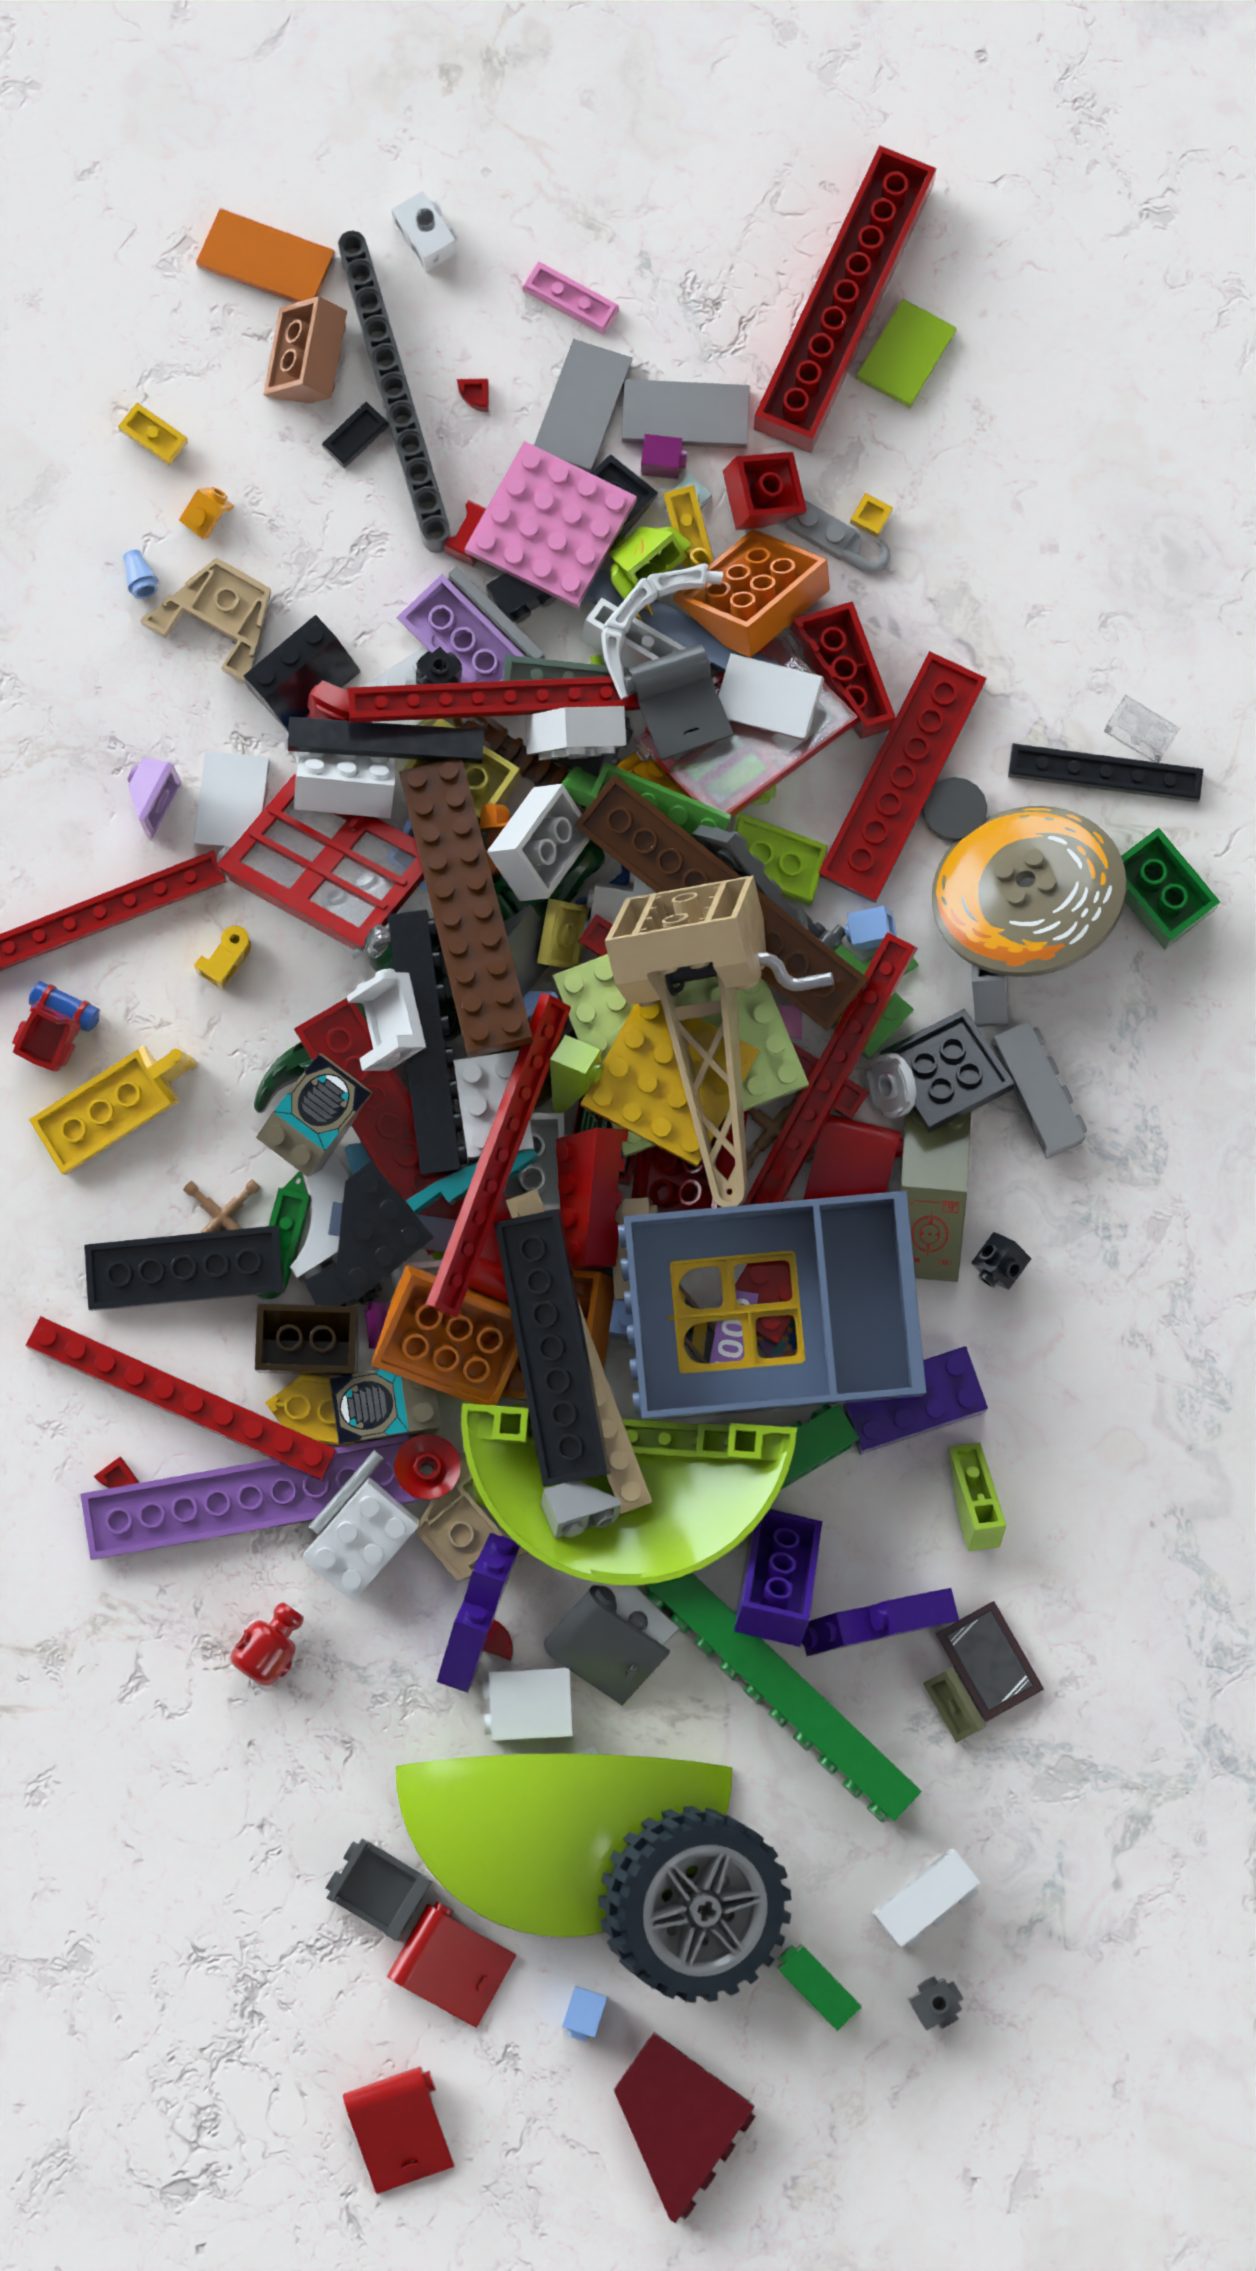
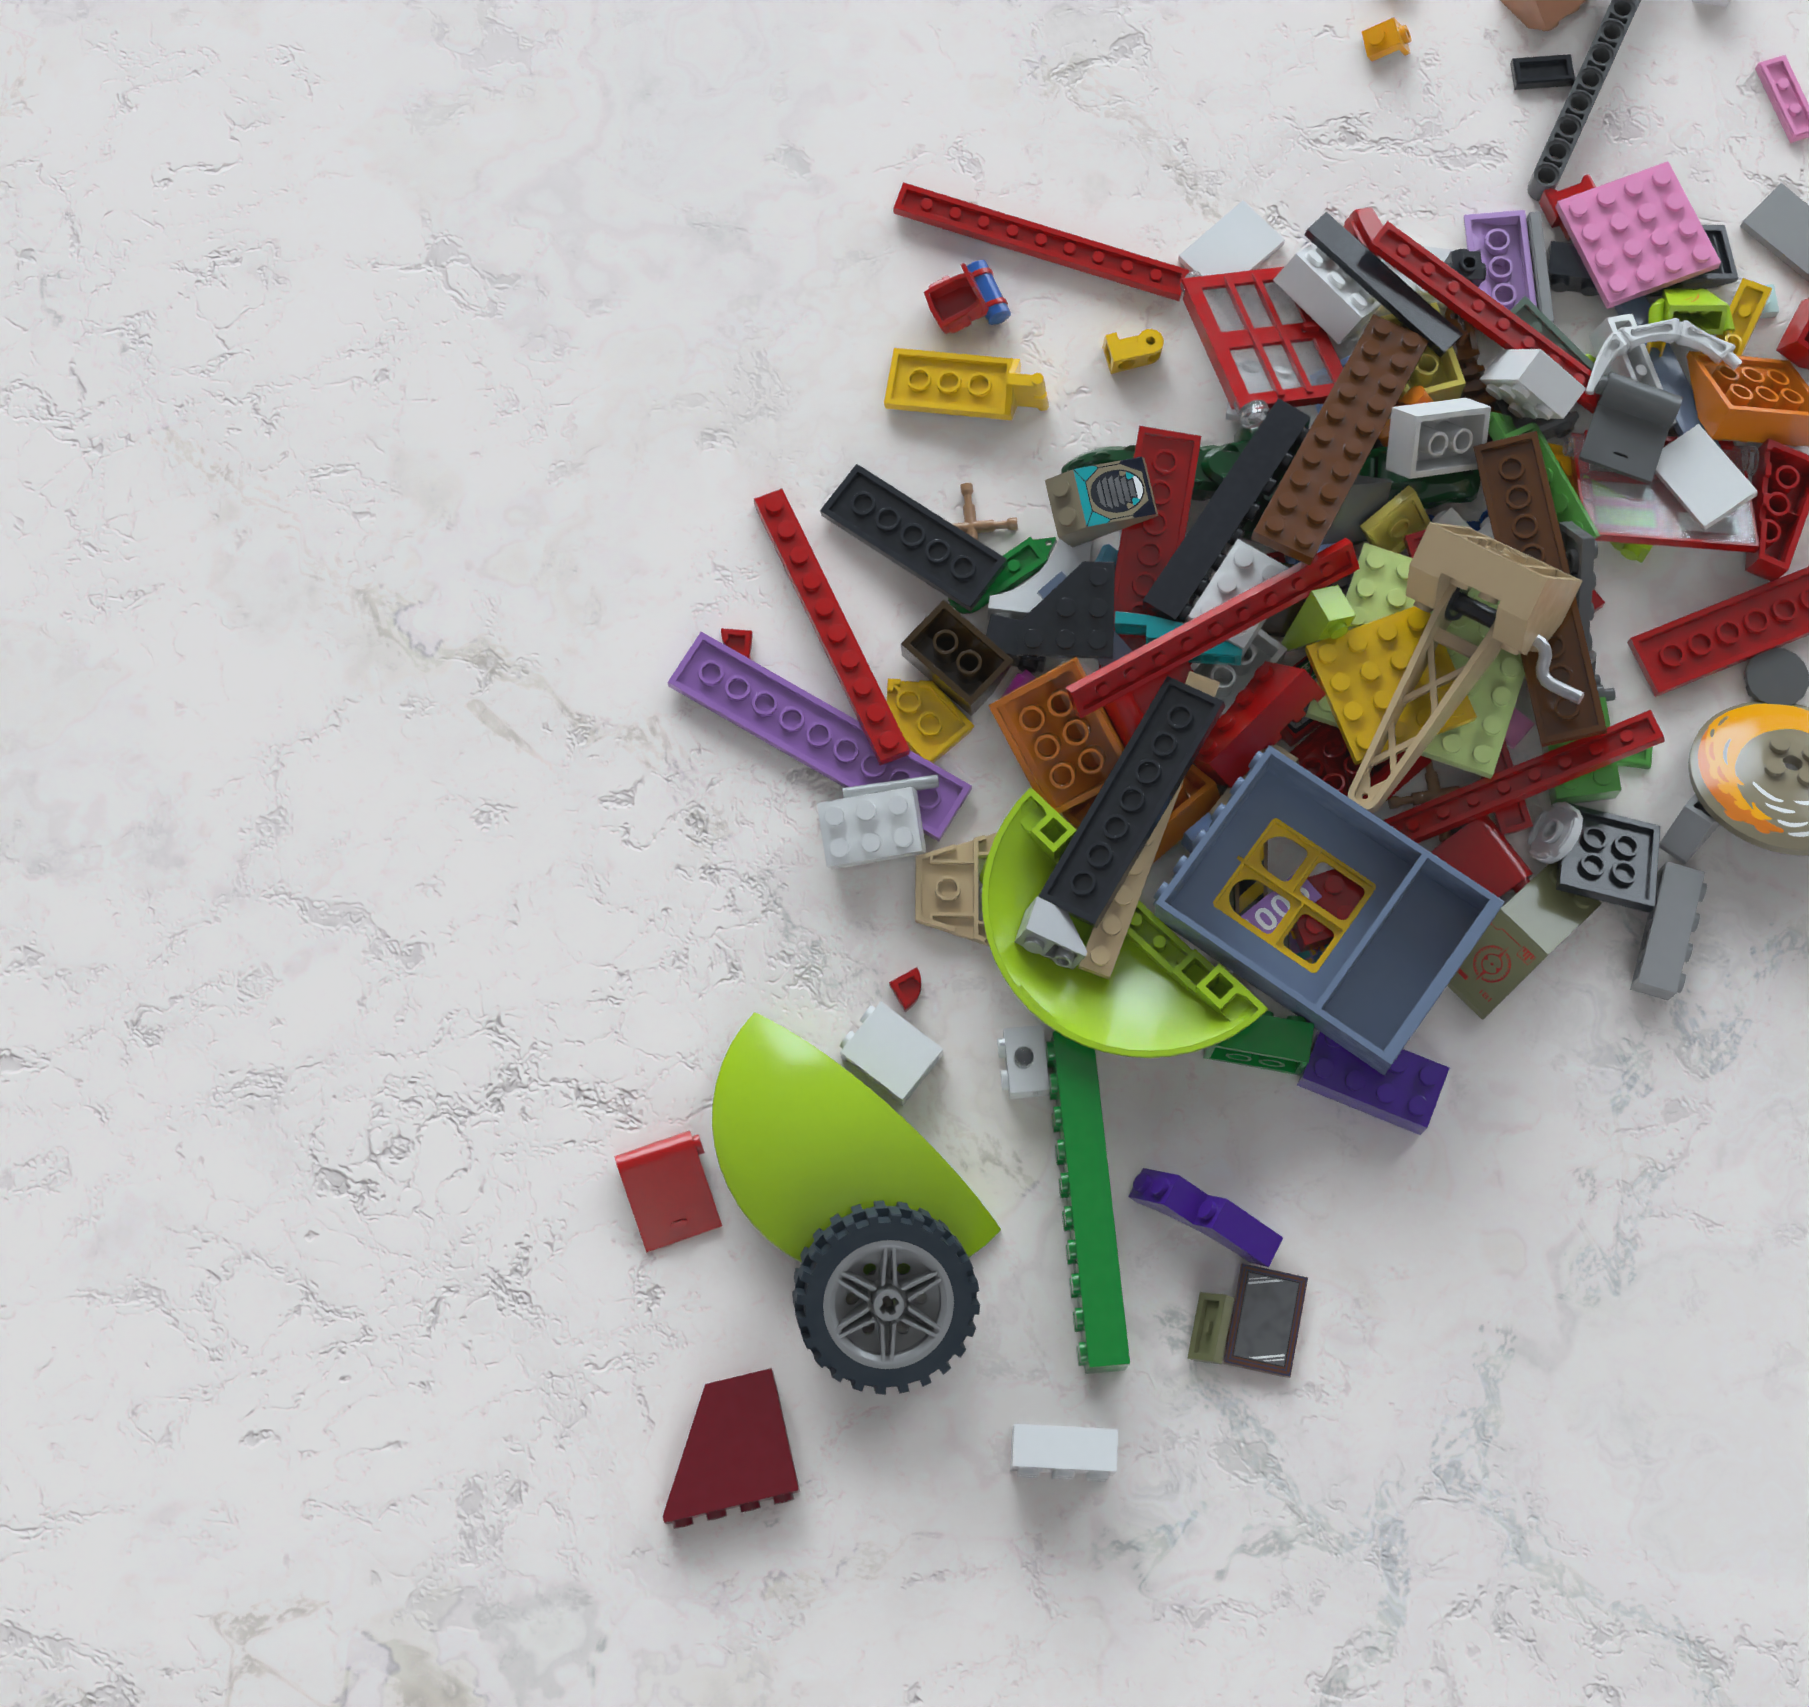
camera: 40 degrees right, 5 degrees down
(140, 577) = (1299, 48): light blue cone -> none
(152, 791) = (1180, 197): lavender slope -> none
(223, 601) = (1346, 112): tan wing -> none
(265, 1648) = (735, 848): red piece -> none
(295, 667) = (1353, 187): black slope -> none
(378, 1888) = (664, 1089): dark grey panel -> none
(382, 1407) = (970, 749): slope -> none
(390, 1019) = (1217, 473): white panel -> none
(398, 2125) = (527, 1271): red door -> none
(428, 1450) = (966, 804): red dish -> none
(475, 393) = (1657, 109): red tile -> none
(477, 1612) = (909, 950): dark purple arch -> none
(583, 404) = (1736, 176): light grey tile -> none
(584, 2013) = (733, 1310): light blue brick -> none
(604, 1646) = (983, 1055): dark grey door -> none
(662, 456) = (1763, 256): magenta brick -> none
(779, 1578) = (1157, 1112): dark purple brick -> none
(787, 857) = (1616, 607): lime tile -> none
(817, 1985) = (924, 1442): green window -> none
(869, 927) = (1634, 702): light blue brick -> none
(923, 2003) = (990, 1542): dark grey brick -> none
(976, 1498) = (1359, 1189): lime slope -> none
(1000, 1261) = (1530, 1031): black brick -> none

